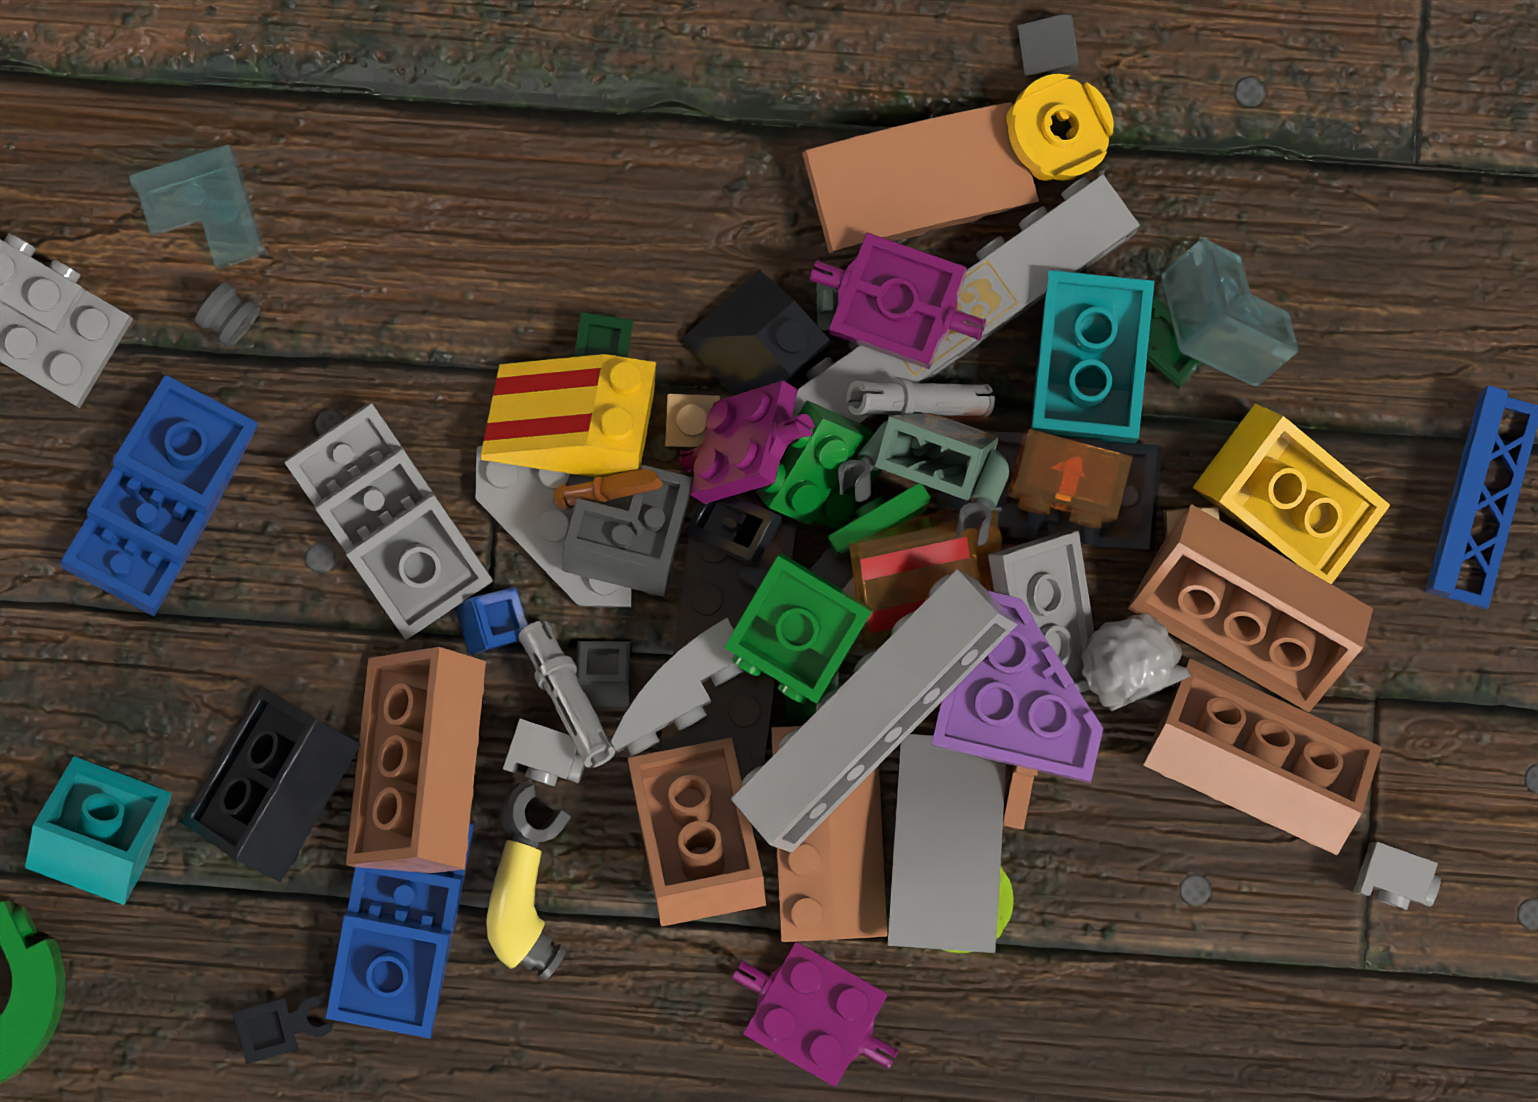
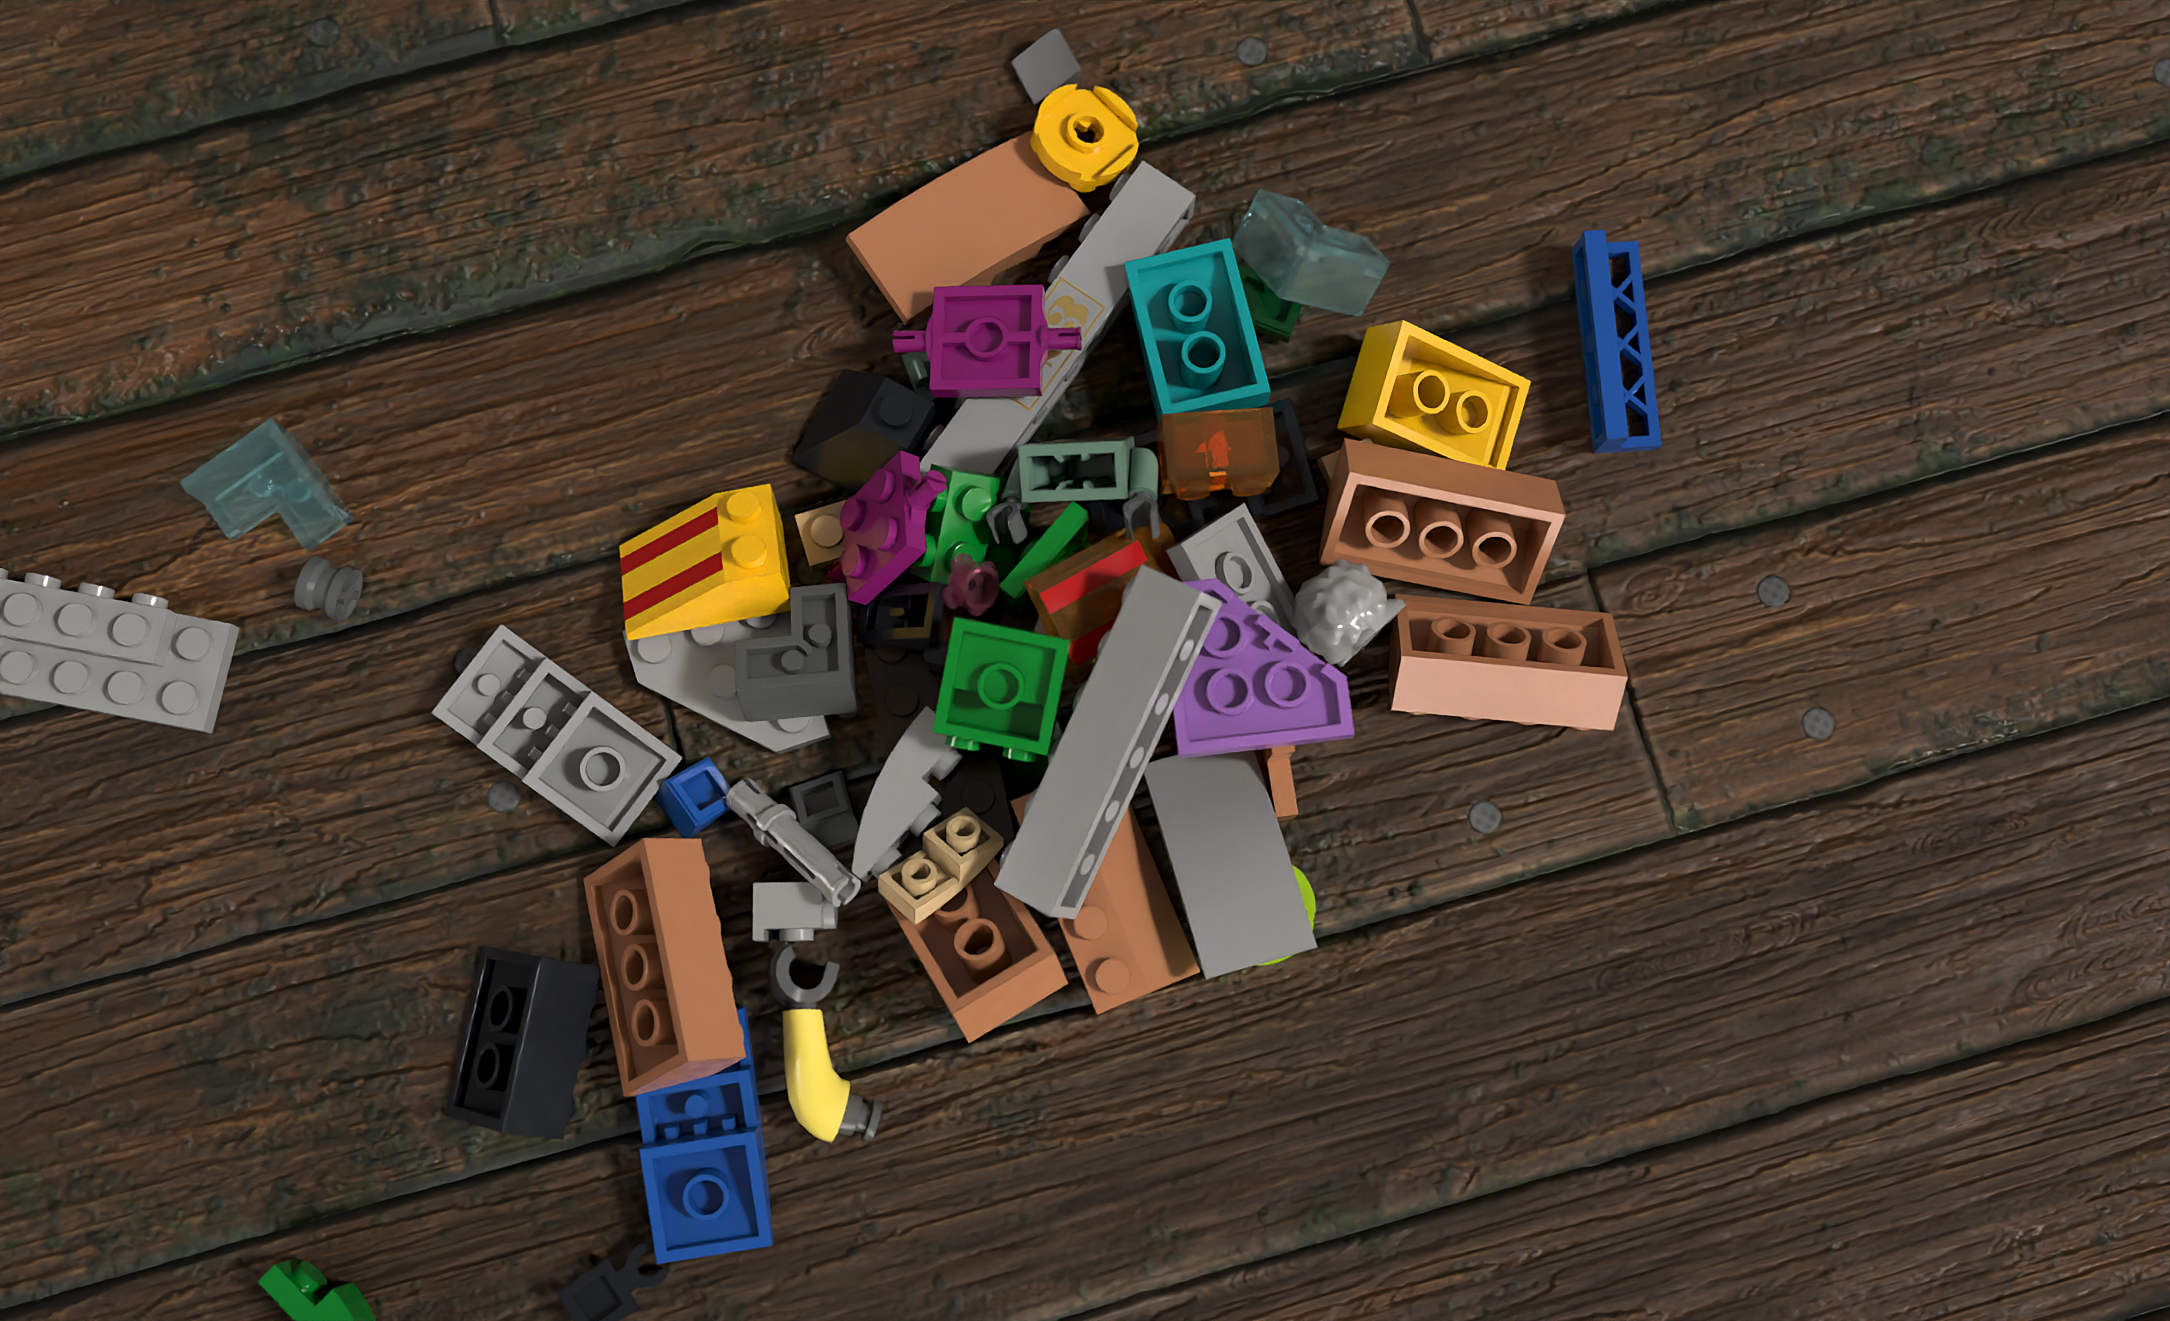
camera: 25 degrees left, 5 degrees down
(97, 830) = (355, 1154): teal slope -> none
(159, 495) = (316, 791): blue slope -> none
(603, 335) = (711, 477): dark green plate -> none
(606, 488) = (765, 621): dark orange piece -> none
(696, 762) = (949, 860): none -> tan slope
(804, 524) = (982, 589): none -> clear pink plate
(815, 1014) = (1156, 1077): magenta plate -> none
(906, 398) = (1029, 428): light grey pin -> none
(1397, 876) = (1678, 731): light grey brick -> none

